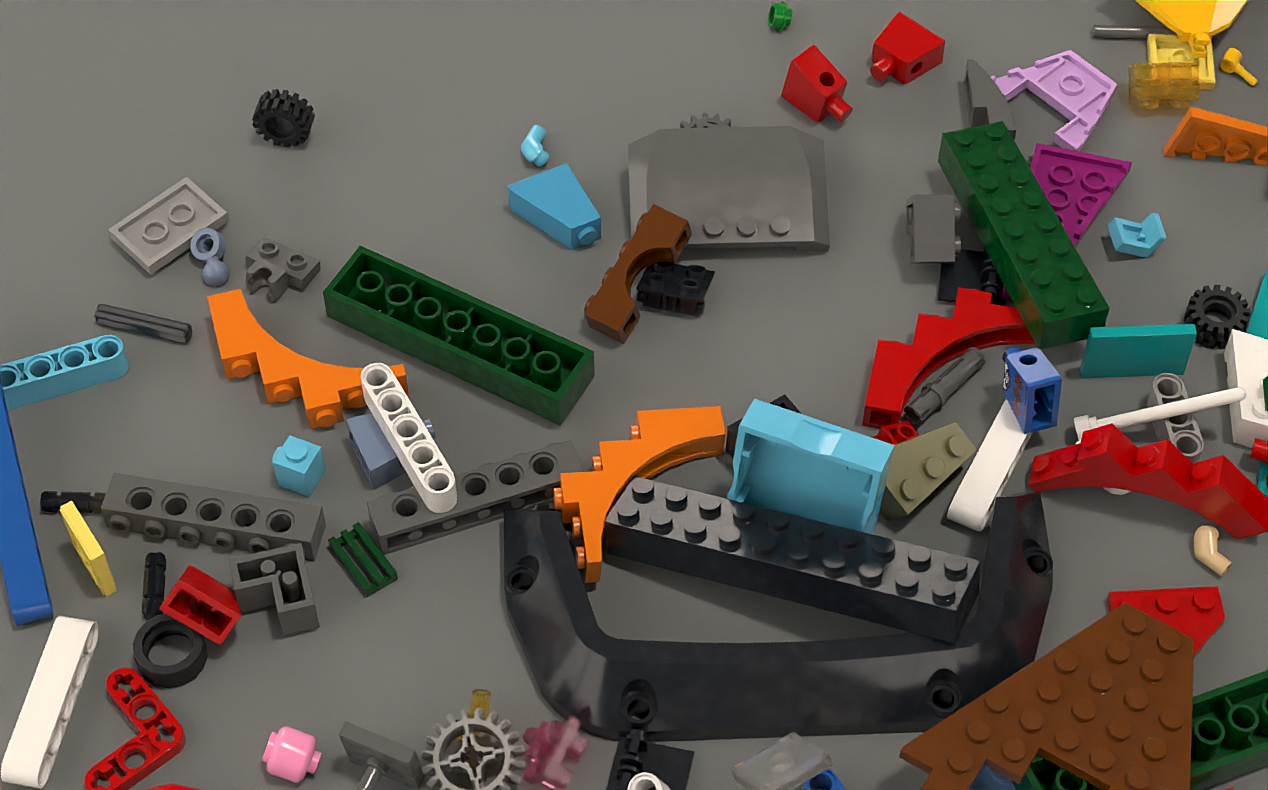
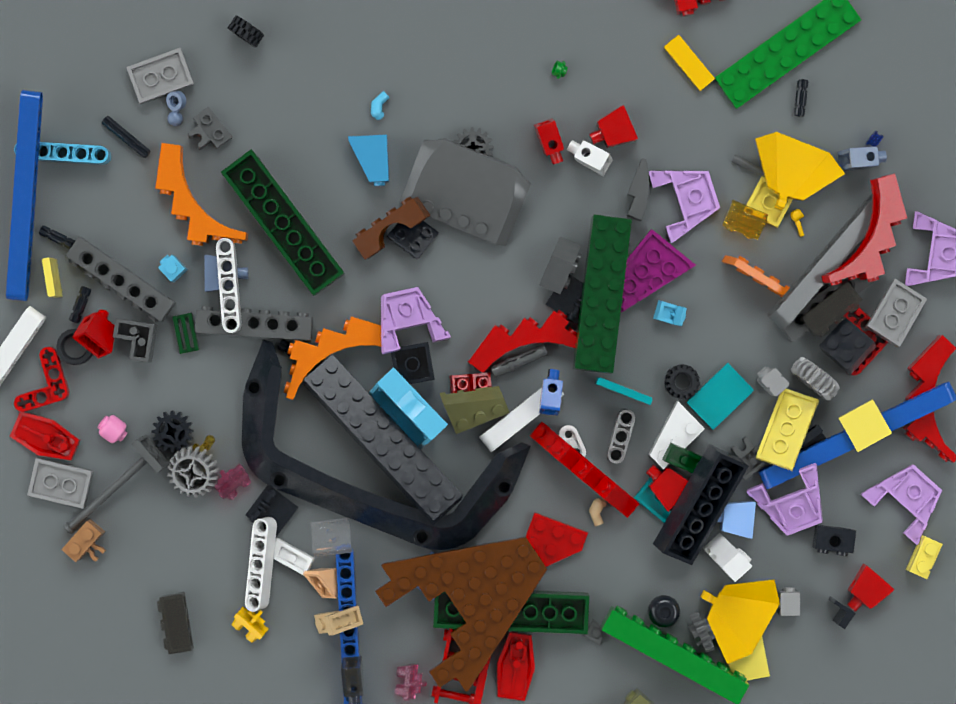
camera: 20 degrees right, 35 degrees up
(411, 702) = (165, 434): none -> black gear
(723, 377) = (406, 310): none -> lavender wing
(892, 87) = (597, 160): none -> white torso
(1163, 411) = (576, 419): white piece -> none

